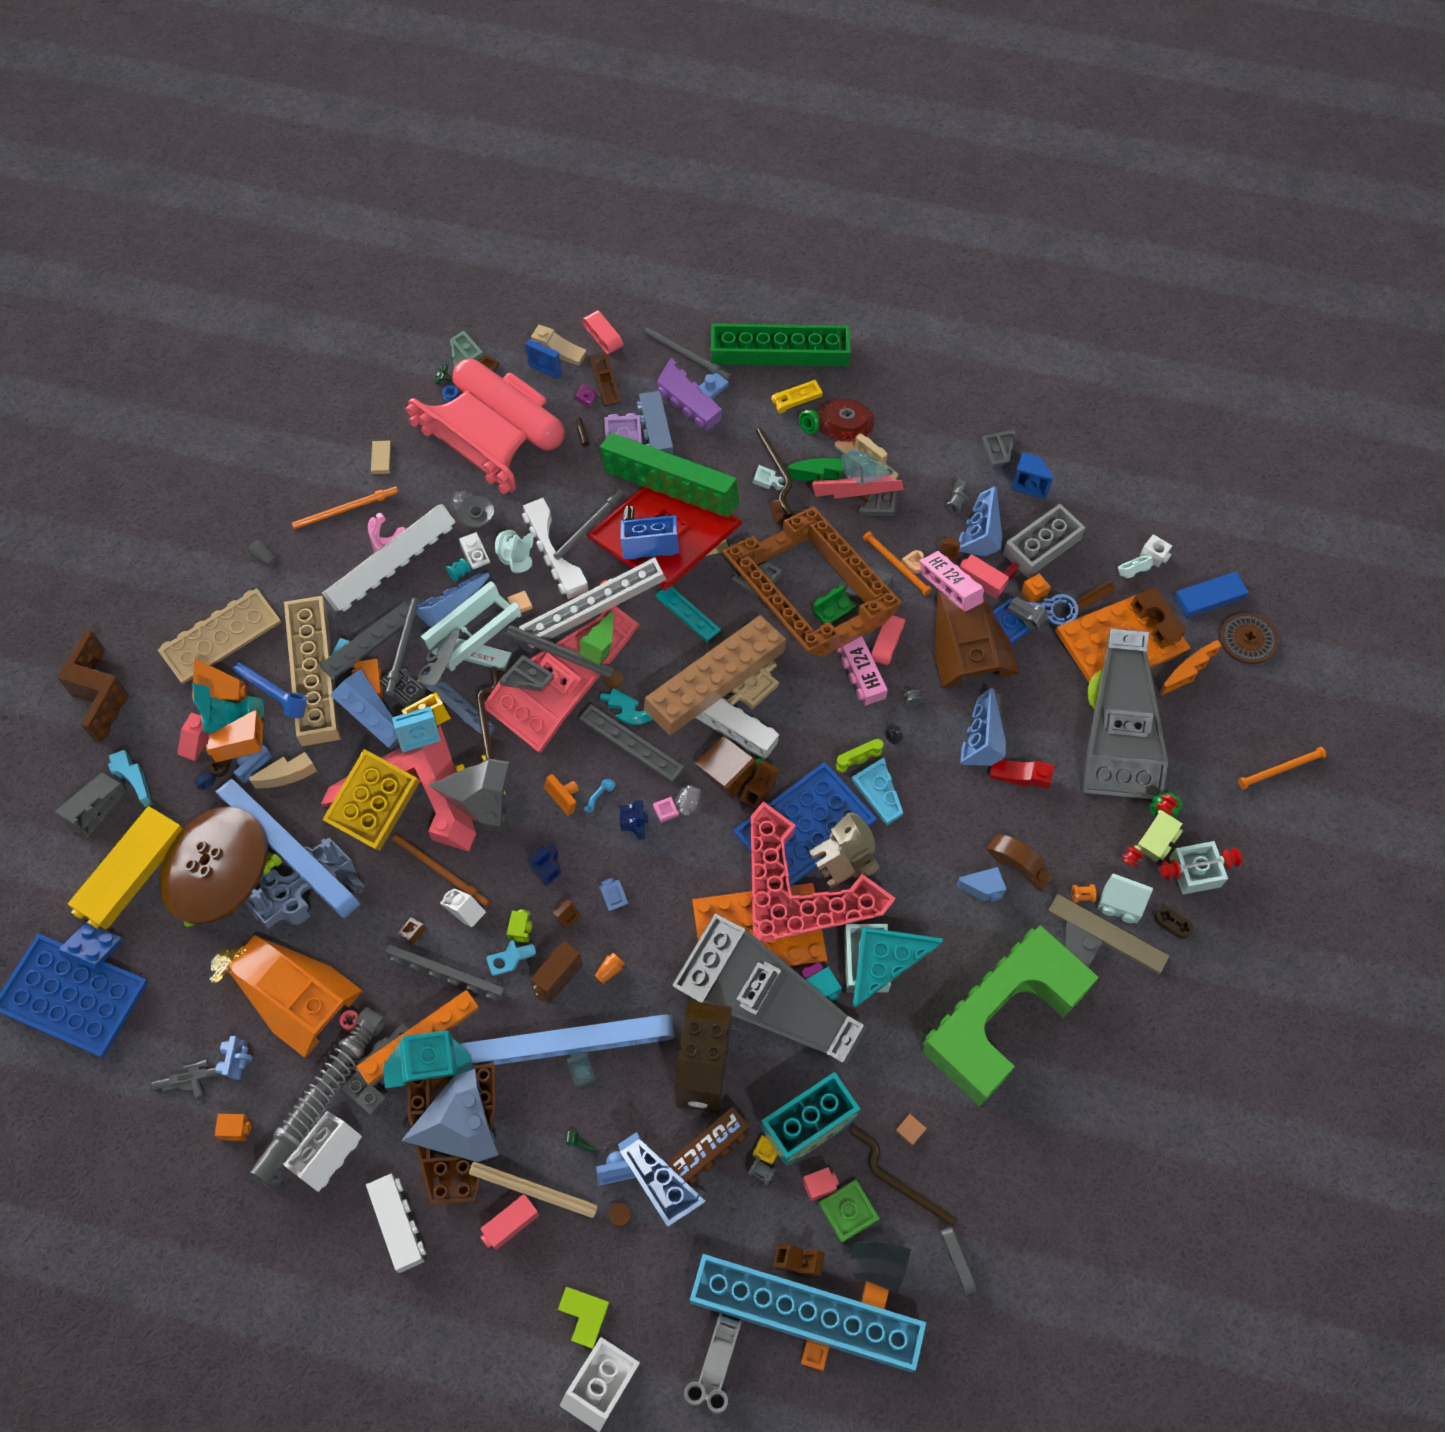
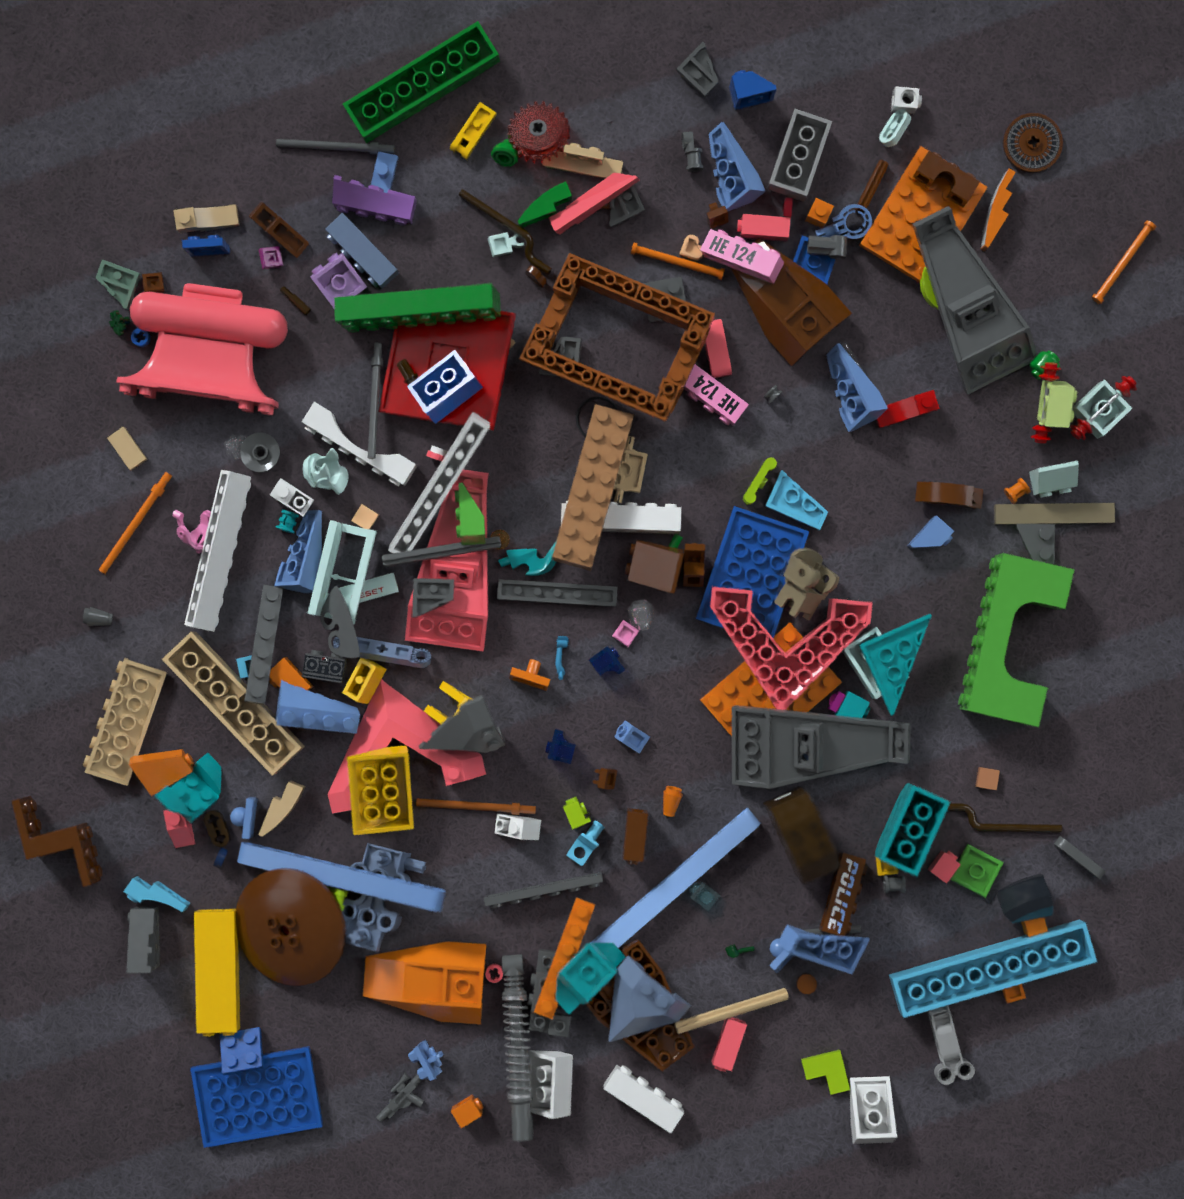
camera: 30 degrees left, 25 degrees up
(217, 963) = (361, 999): clear yellow piece -> none
(237, 738) = (222, 808): orange slope -> none
(293, 703) = (250, 751): blue piece -> none
(394, 675) = (313, 667): dark grey bar -> none
(412, 930) = (490, 871): reddish brown tile -> none
(416, 729) = (370, 705): medium azure bracket -> none
(482, 713) = (413, 650): dark brown piece -> none
(603, 332) = (237, 174): coral beam -> none
(688, 614) = (526, 434): teal tile -> none
(798, 1260) = (963, 933): reddish brown brick -> none
(833, 606) = (648, 345): green bracket -> none
(863, 467) = (593, 182): clear light blue slope -> none
(894, 734) = (776, 440): black plate -> none
(1173, 923) = (1103, 465): dark brown beam -> none
(1211, 594) = (977, 116): blue piece -> none

